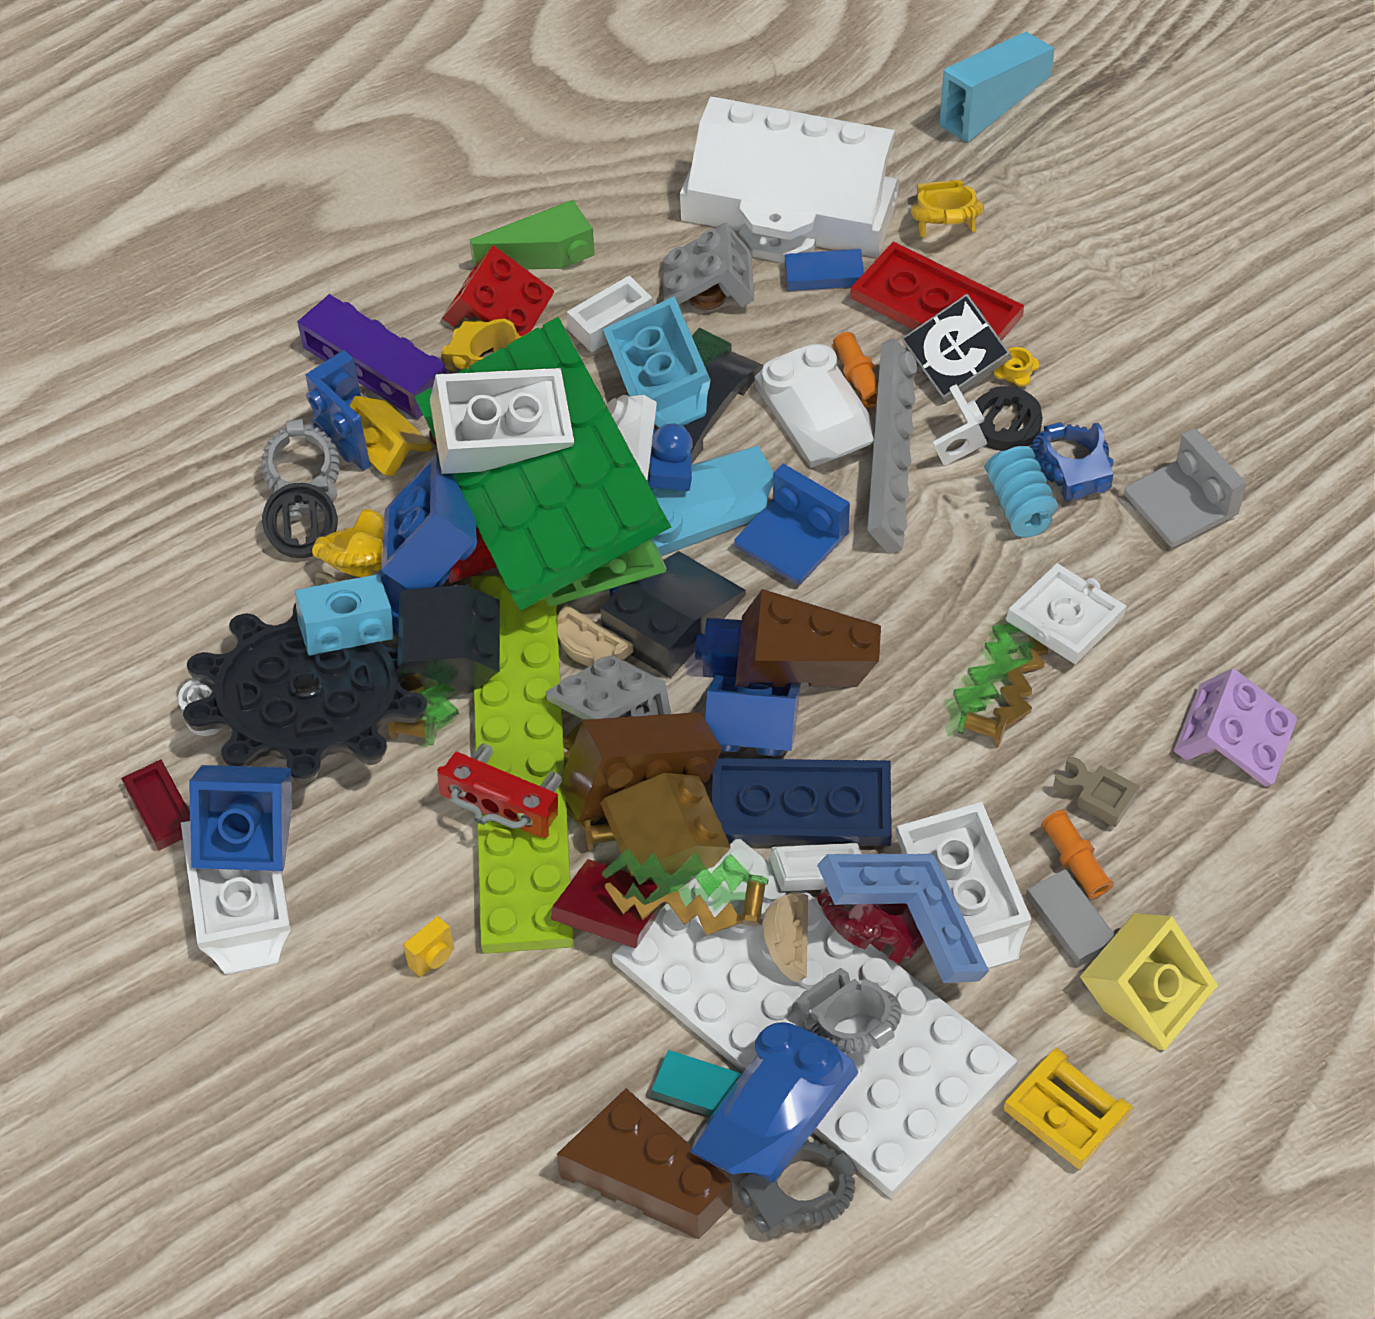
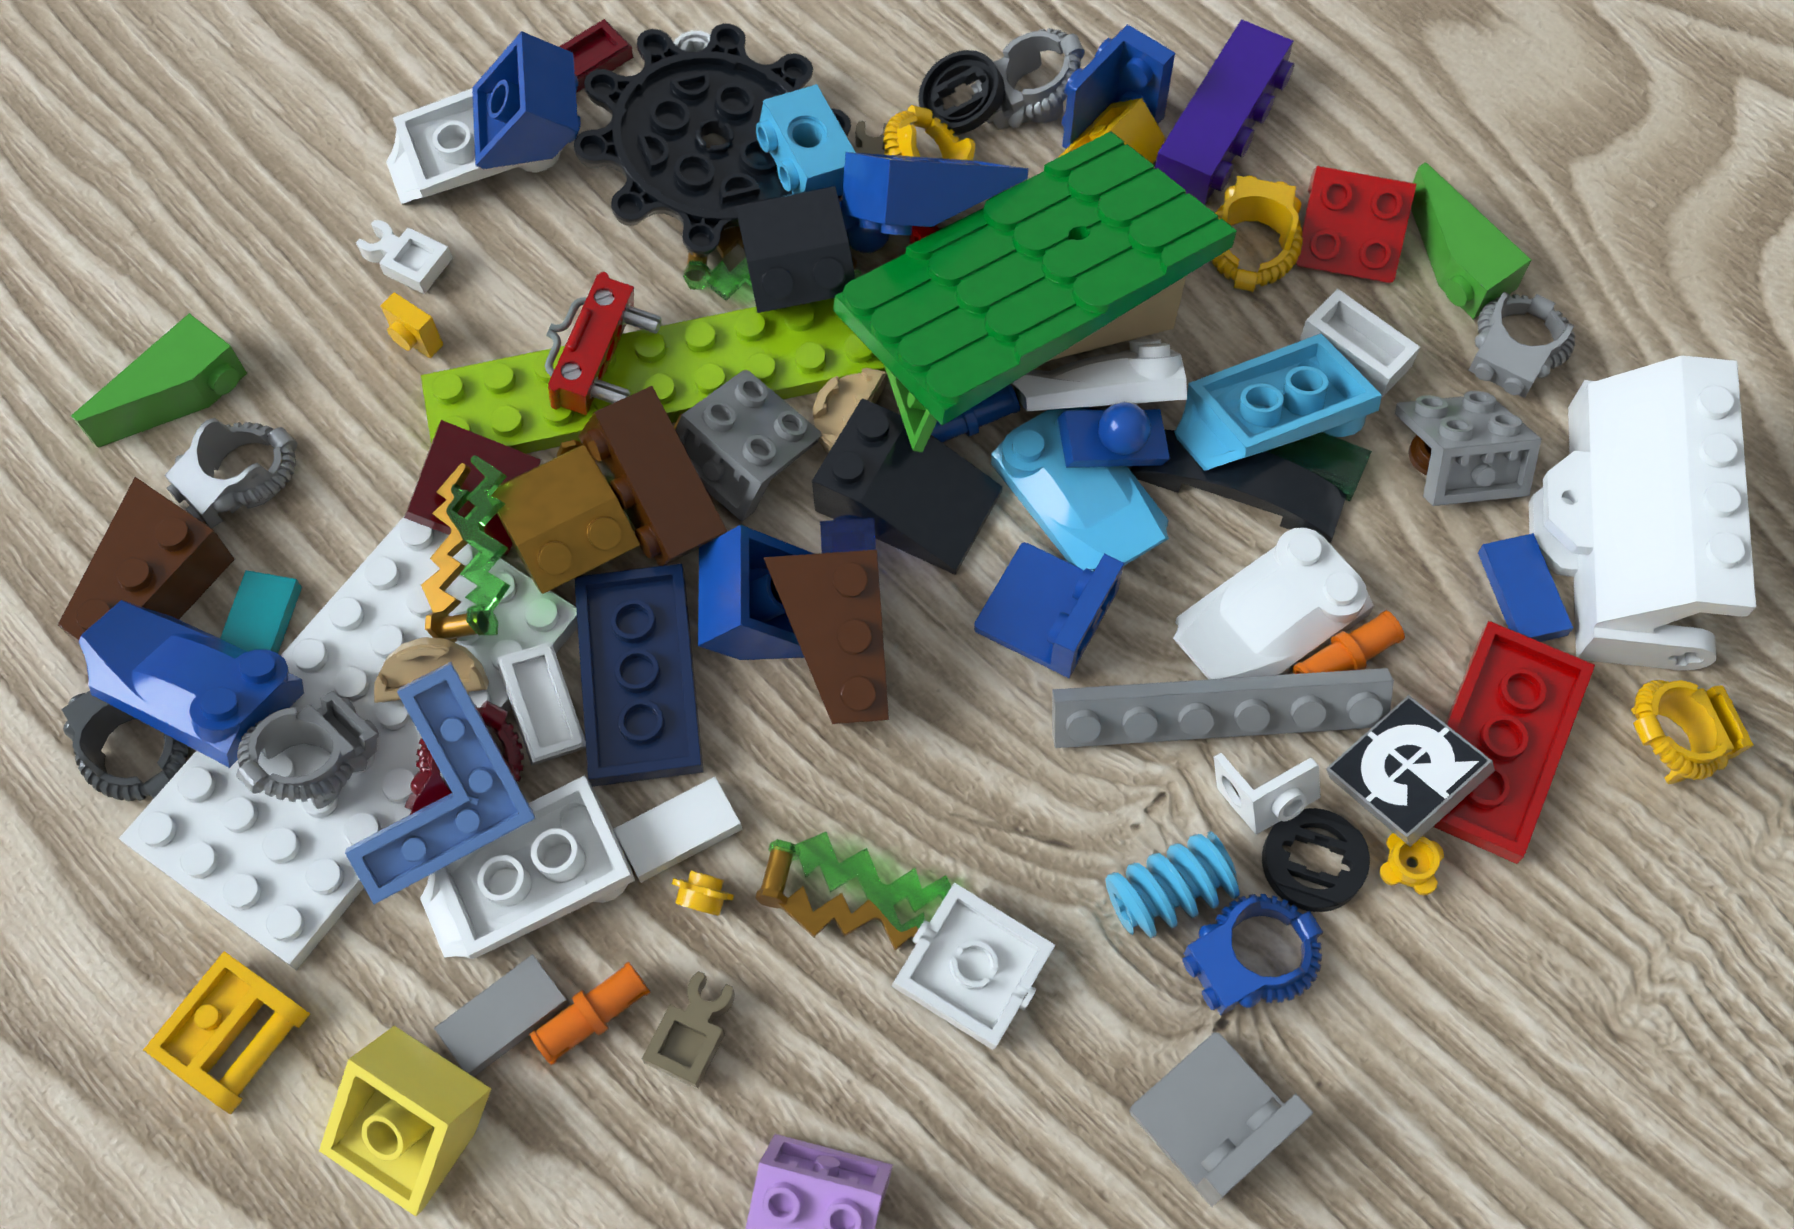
camera: 80 degrees right, 10 degrees up
(349, 948) = (408, 258): none -> white plate
(431, 1139) = (168, 381): none -> bright green slope
(498, 418) = (1059, 199): white slope -> none
(552, 1126) = (194, 478): none -> light grey piece
(641, 238) = (1517, 364): none -> light grey piece
(931, 781) = (678, 829): none -> white tile
(992, 772) = (701, 893): none -> yellow plate

